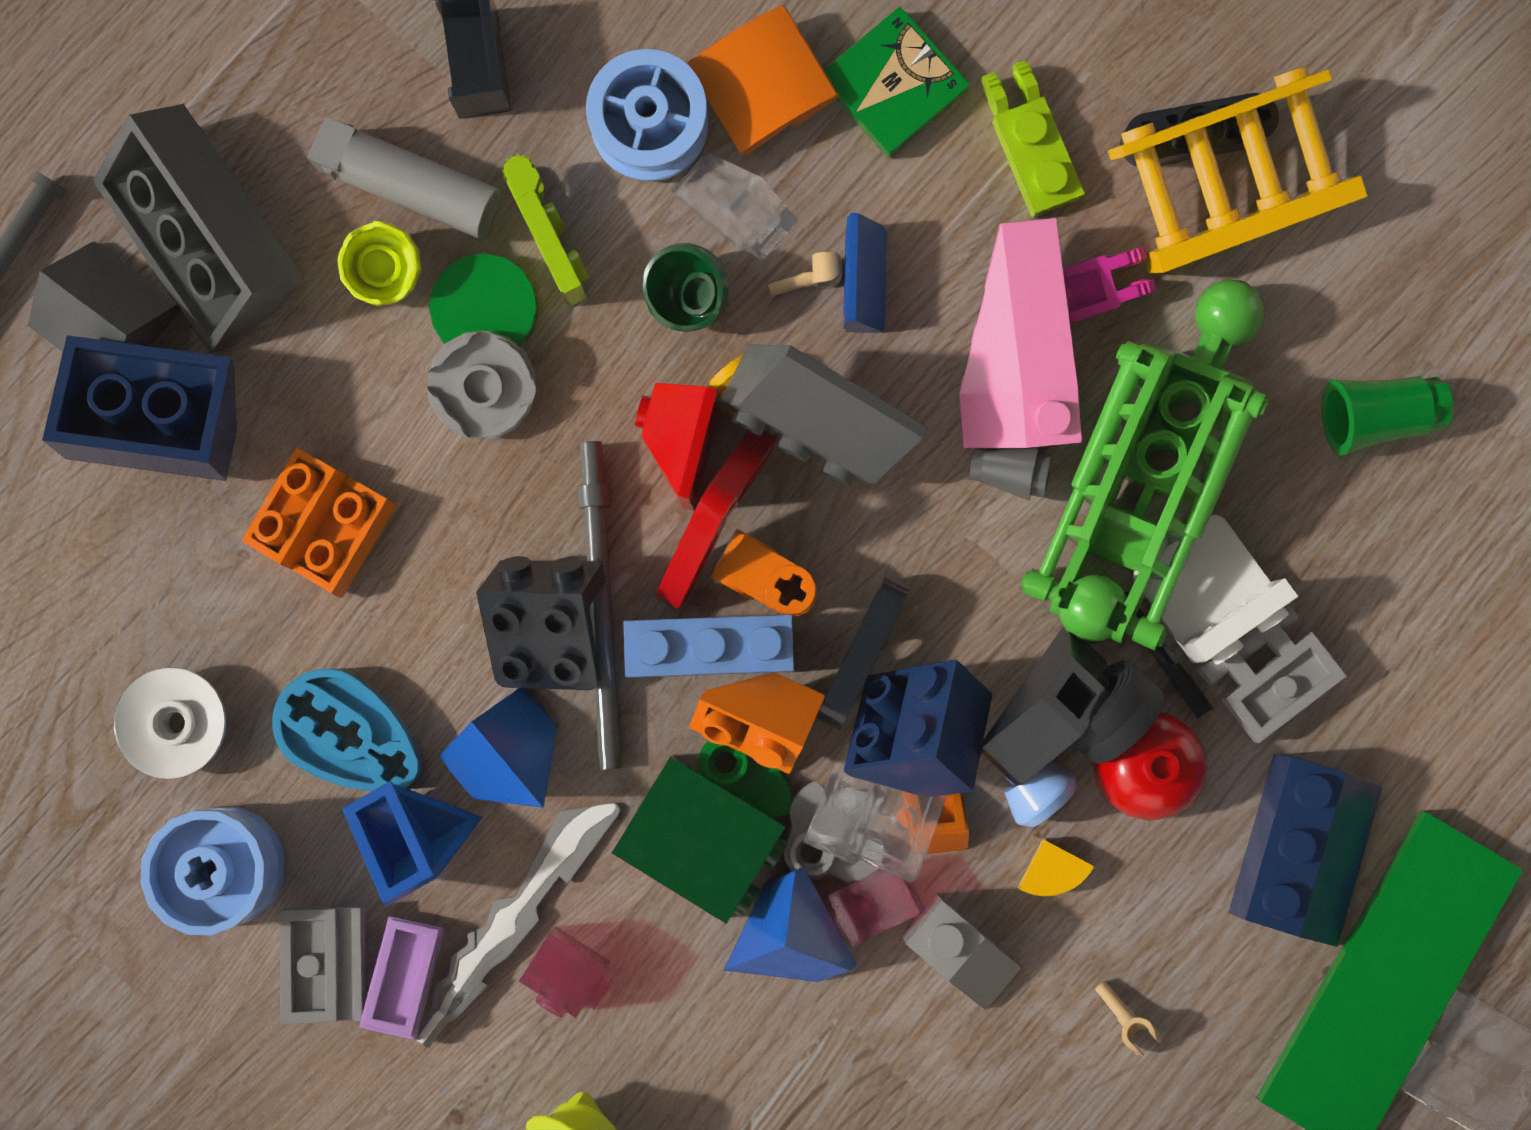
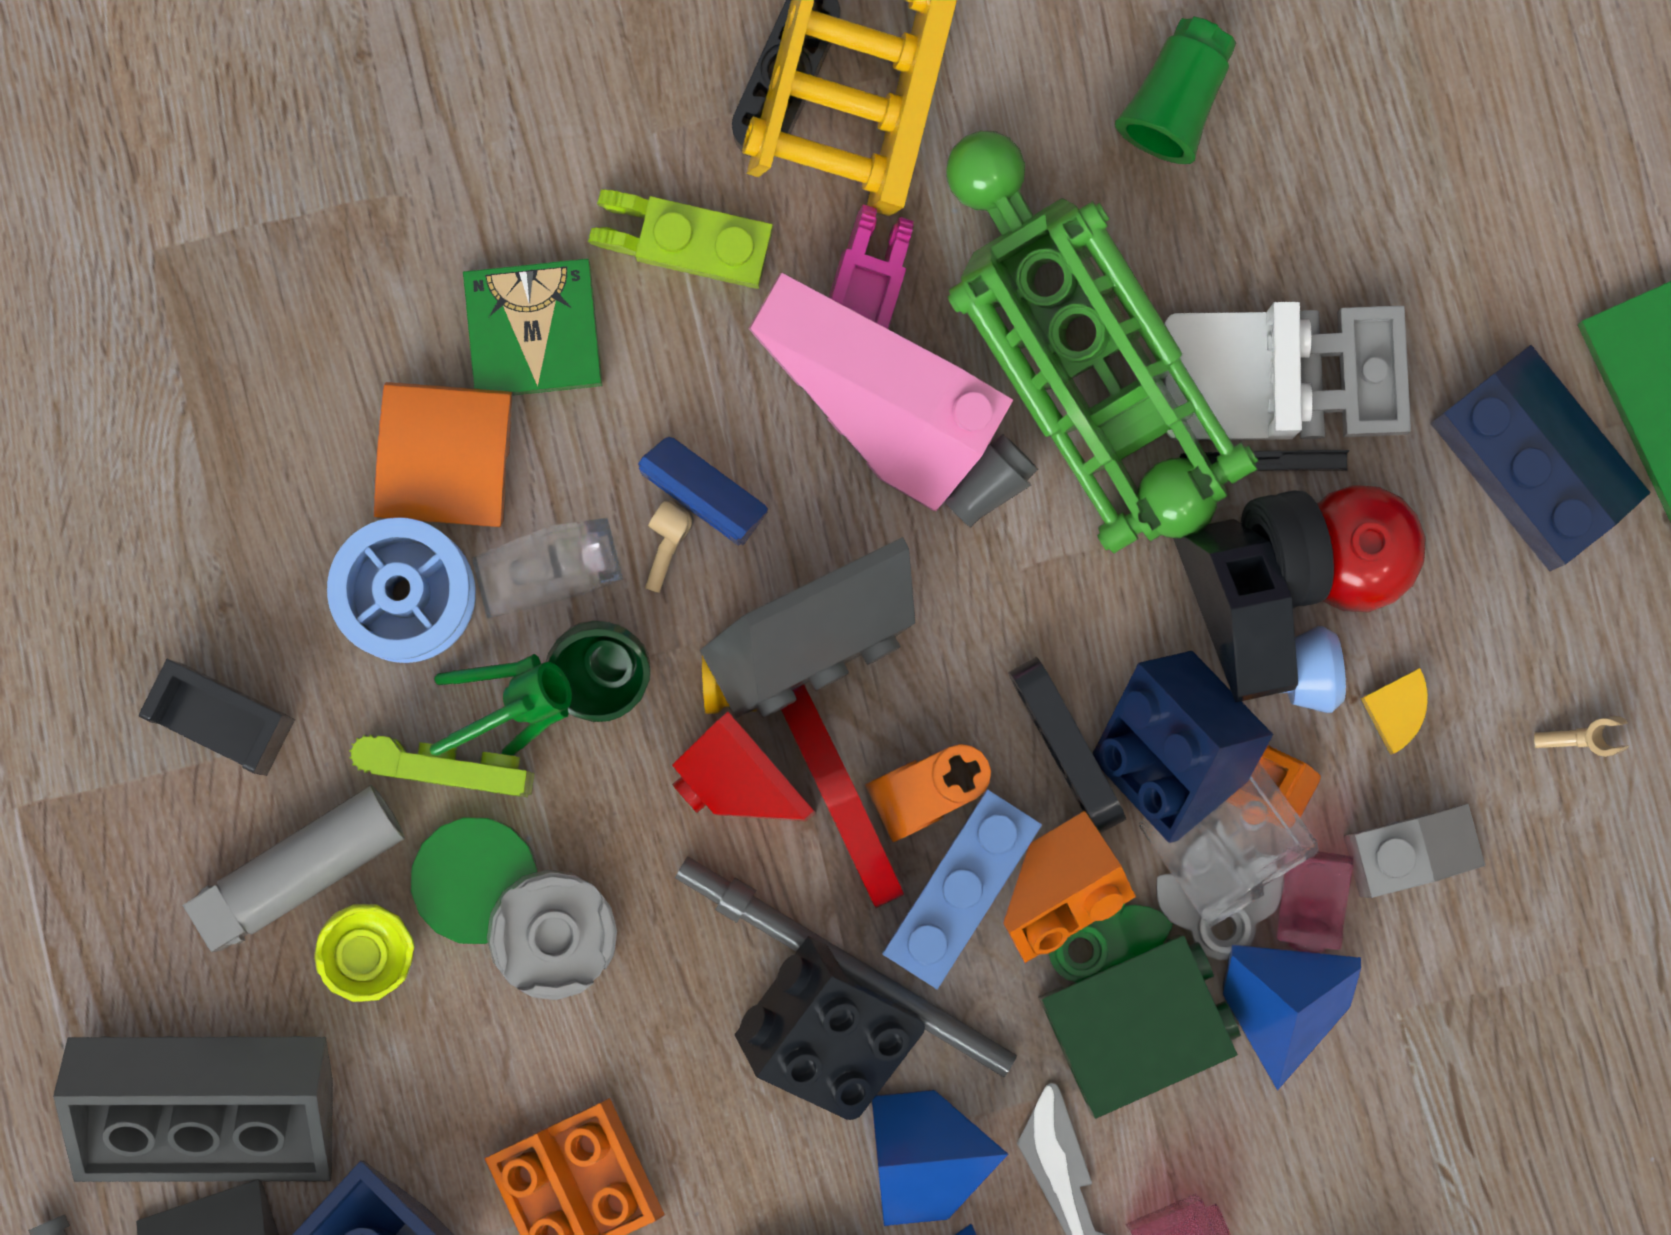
camera: 55 degrees left, 0 degrees up
(636, 252) = (534, 695): none -> green plant

